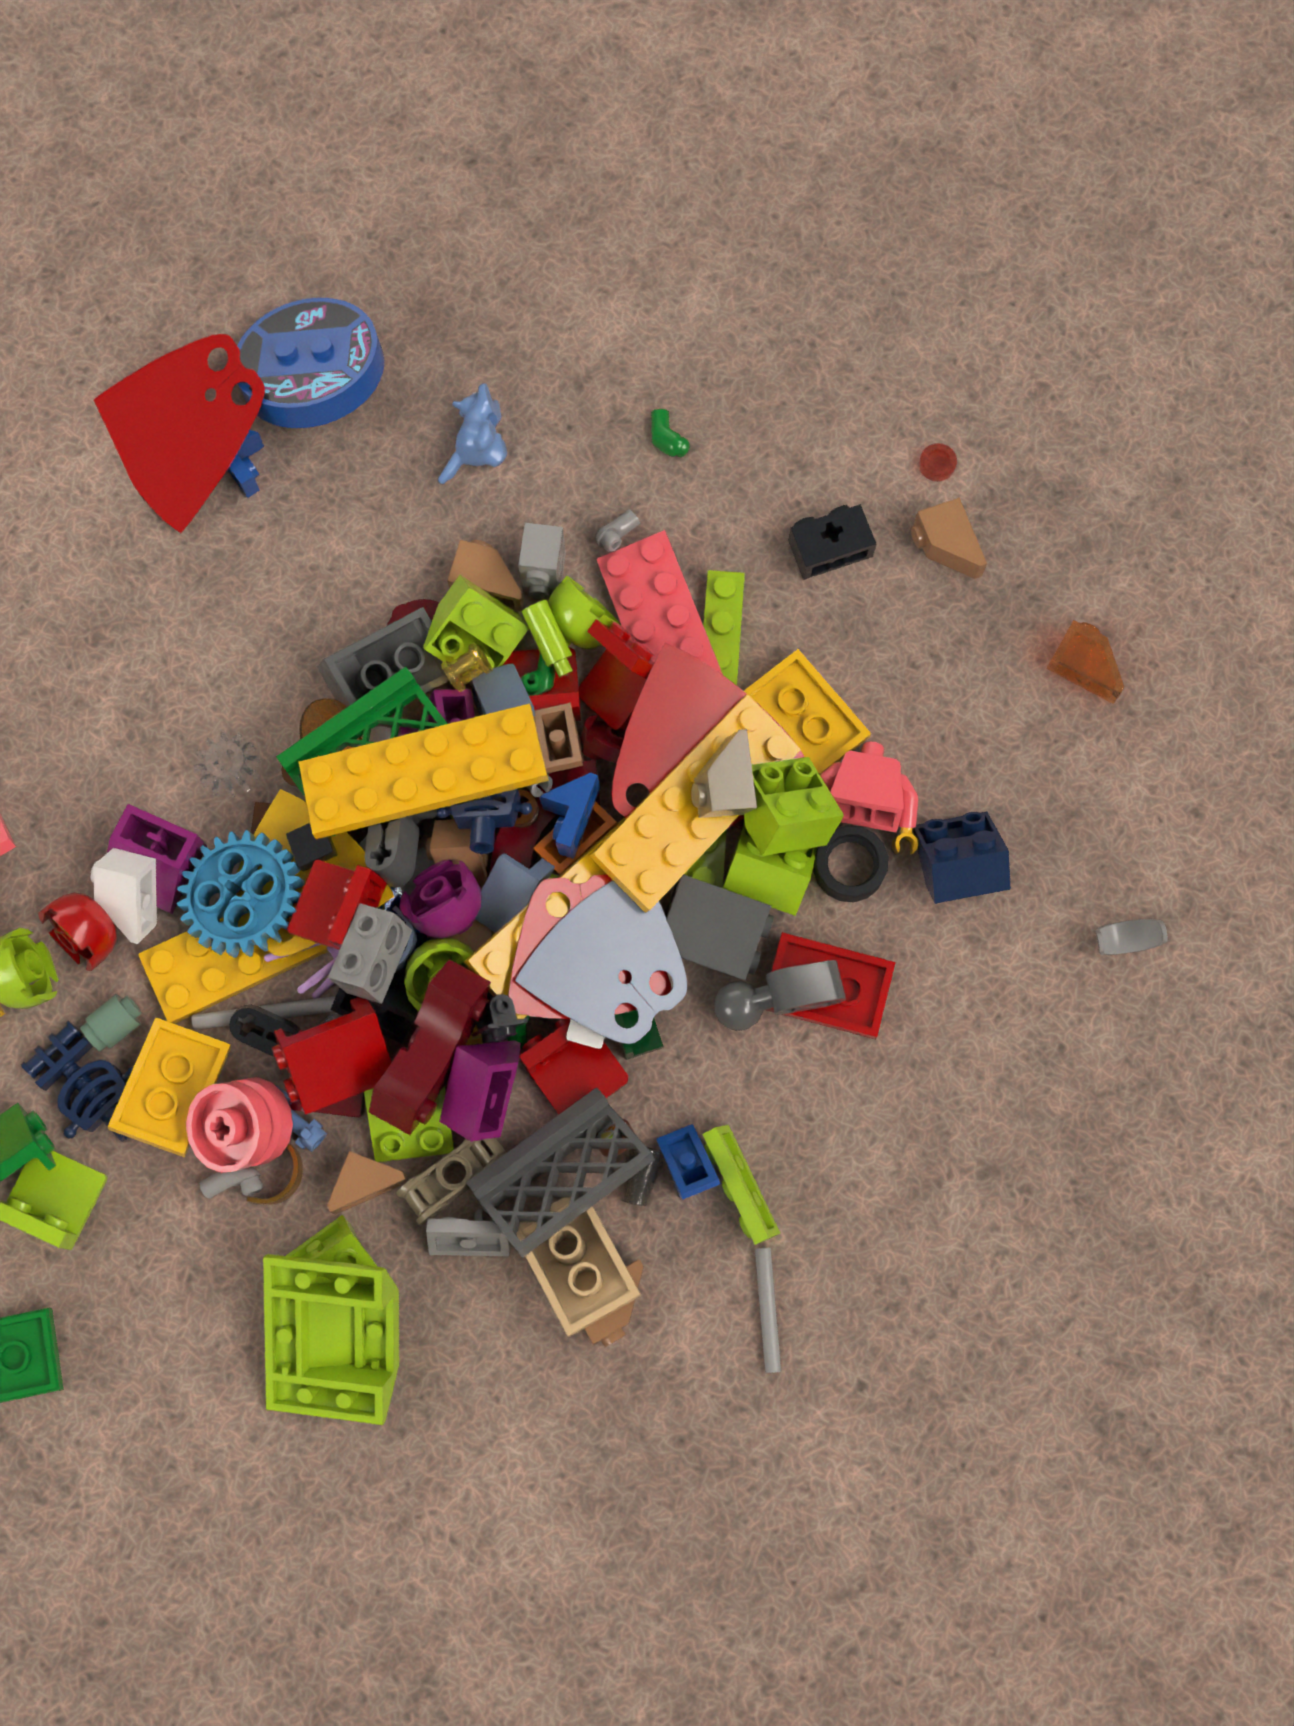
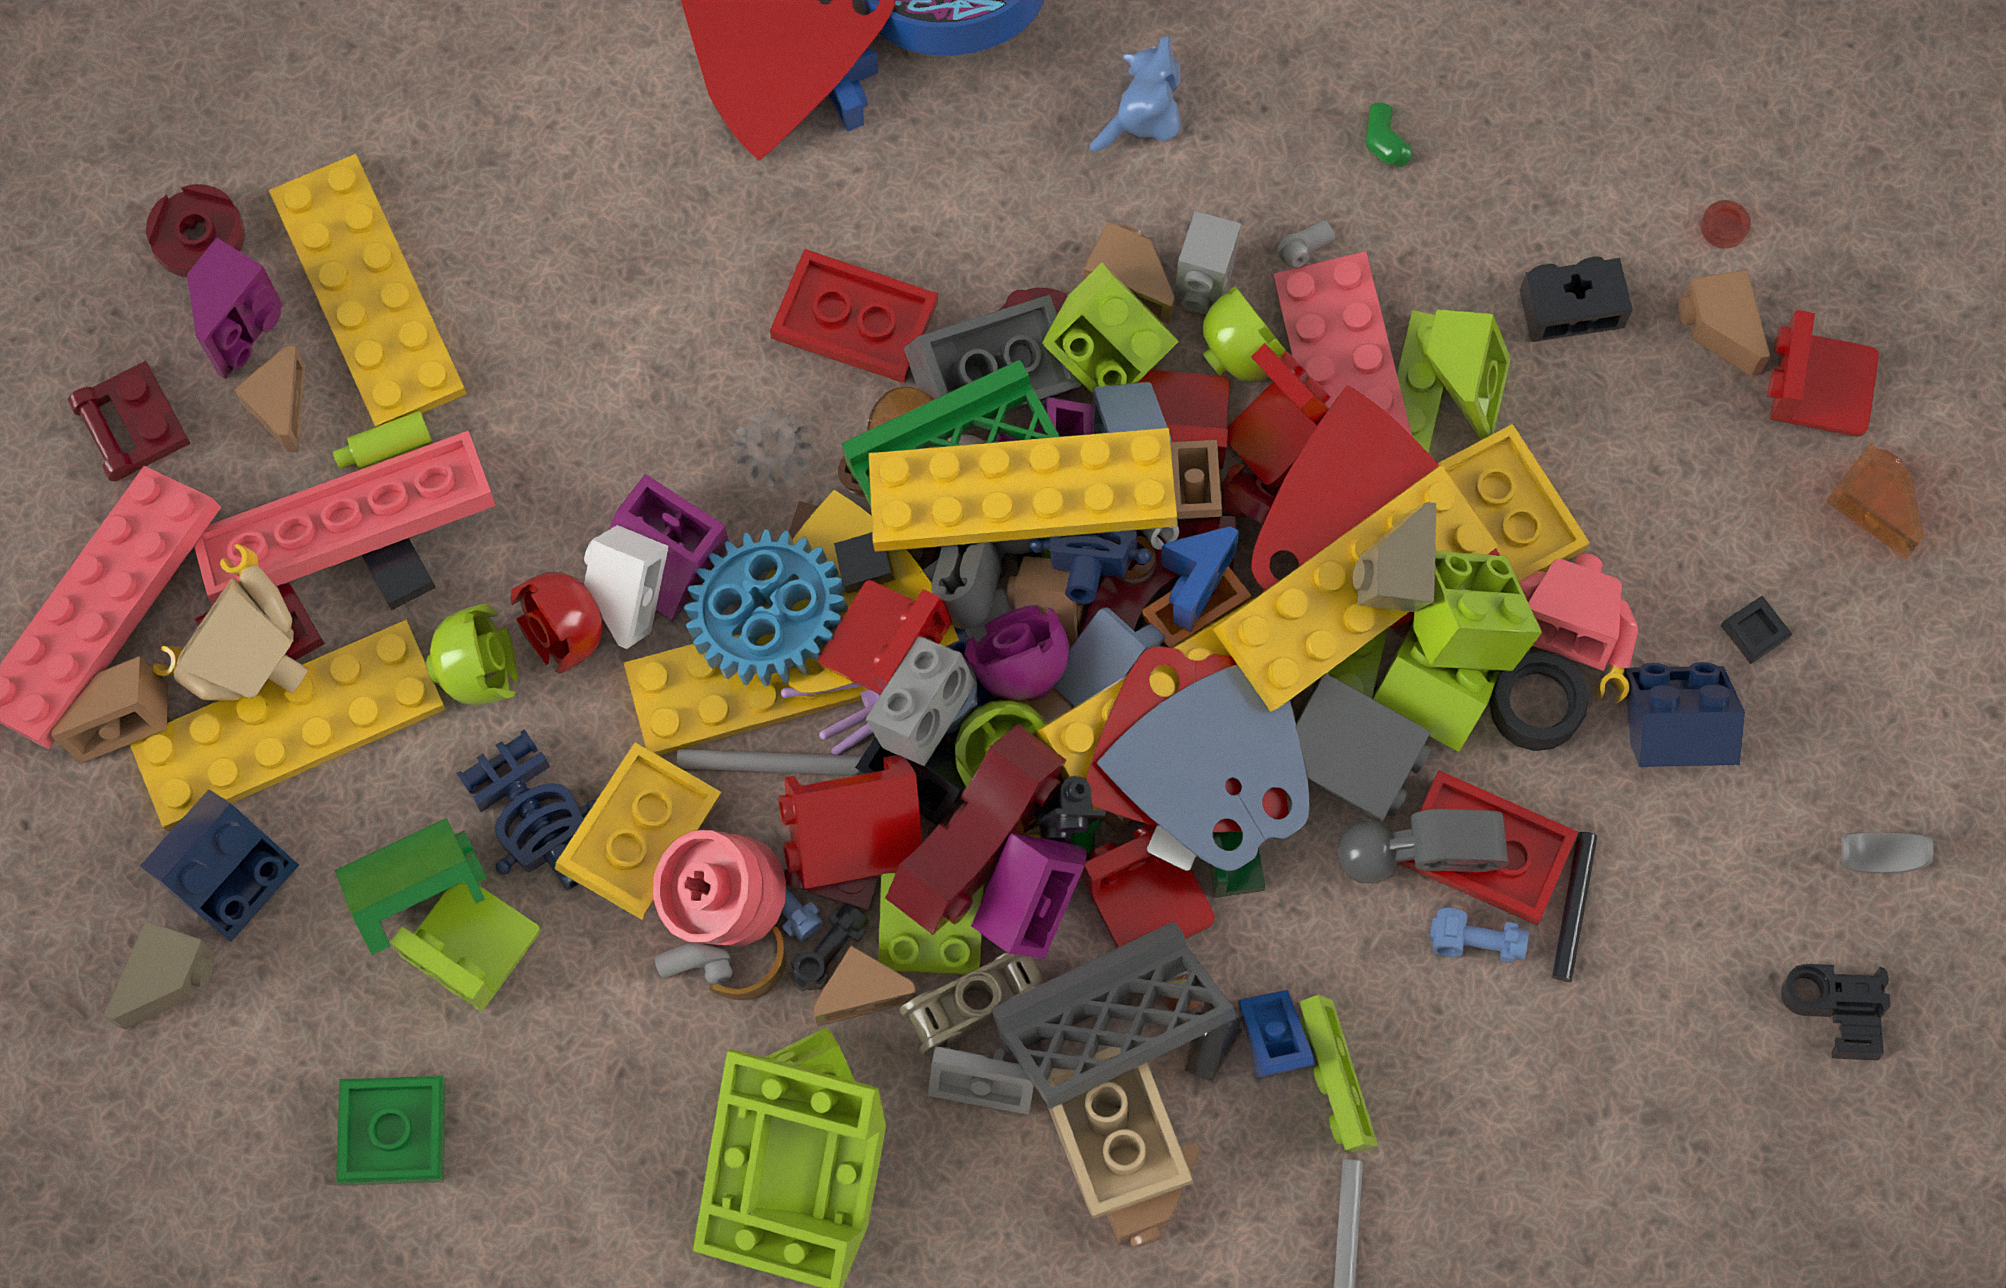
camera: 10 degrees right, 5 degrees down
(111, 1022) = (578, 740): sand green brick -> none
(263, 1019) = (754, 790): black beam -> none
(273, 645) = (853, 315): none -> red plate
(322, 1172) = (811, 966): none -> black bar
(467, 667) = (1093, 375): clear yellow bush -> none
(540, 679) = (1185, 406): green arm -> none
(548, 637) = (1200, 356): lime cylinder -> none
(759, 607) = (1470, 364): none -> lime slope
(811, 1057) = (1451, 933): none -> medium blue bar
(902, 1019) = (1574, 906): none -> black bar
(1007, 779) = (1756, 629): none -> black tile
(1029, 574) = (1821, 379): none -> red bracket
(1124, 1062) = (1853, 1007): none -> black piece

